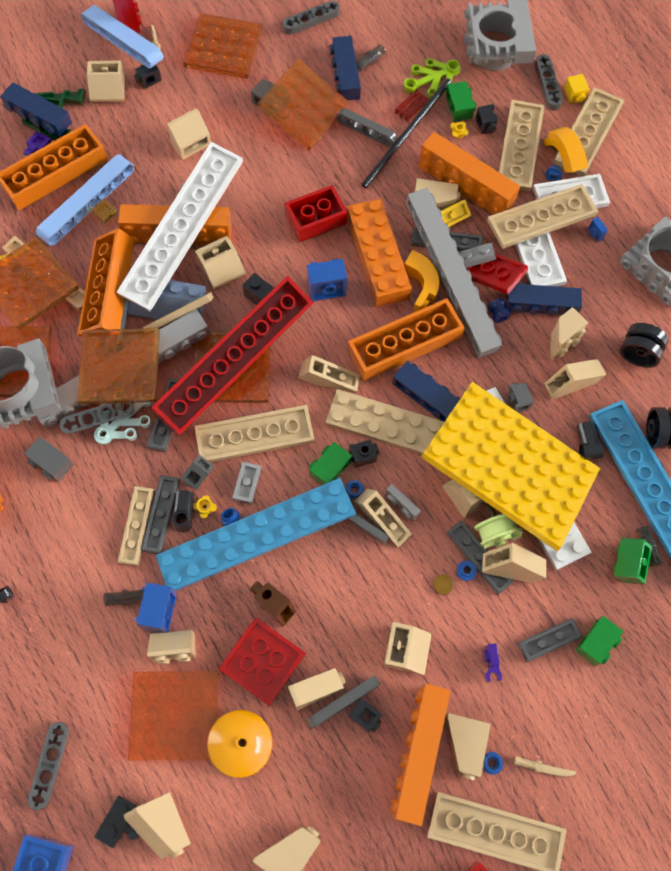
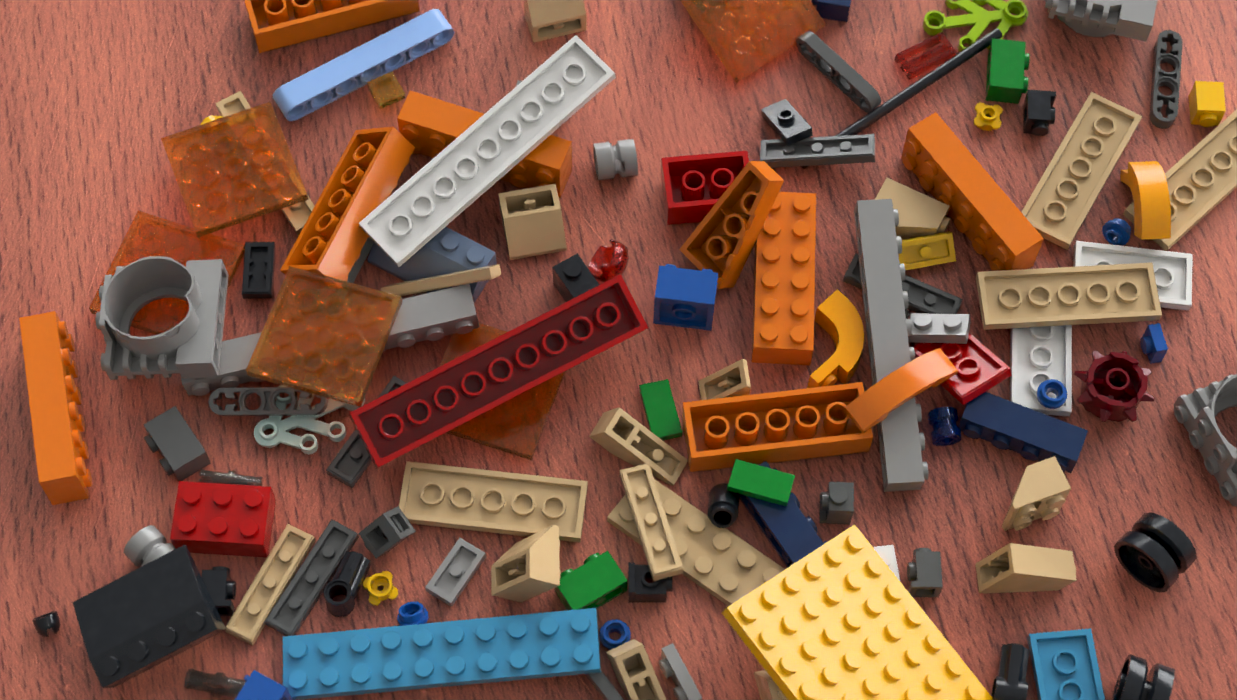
camera: 20 degrees right, 5 degrees down
(55, 529) = (147, 546): none -> light grey wheel
(63, 339) = (258, 270): none -> black plate
(66, 571) = (146, 617): none -> black slope
(90, 472) = (229, 478): none -> clear smoke pin
(93, 495) = (223, 518): none -> red brick
(105, 541) = (221, 589): none -> black brick
(257, 212) = (615, 159): none -> light grey wheel
(274, 272) = (609, 261): none -> clear red hair
(290, 465) = (528, 567): none -> tan slope
(333, 349) = (660, 409): none -> green tile
(341, 227) = (733, 223): none -> orange wedge
(347, 163) = (786, 122): none -> plate
(353, 417) = (651, 522): none -> tan tile
(367, 322) = (726, 382): none -> tan slope
(371, 175) = (819, 151): none -> dark grey tile
(391, 394) = (723, 506): none -> black brick
(409, 374) = (761, 482): none -> green tile
(455, 373) = (837, 503): none -> dark grey brick
(470, 295) = (899, 388): none -> orange slope
(555, 269) = (1055, 387): none -> blue plate
(585, 259) = (1114, 386): none -> dark red brick

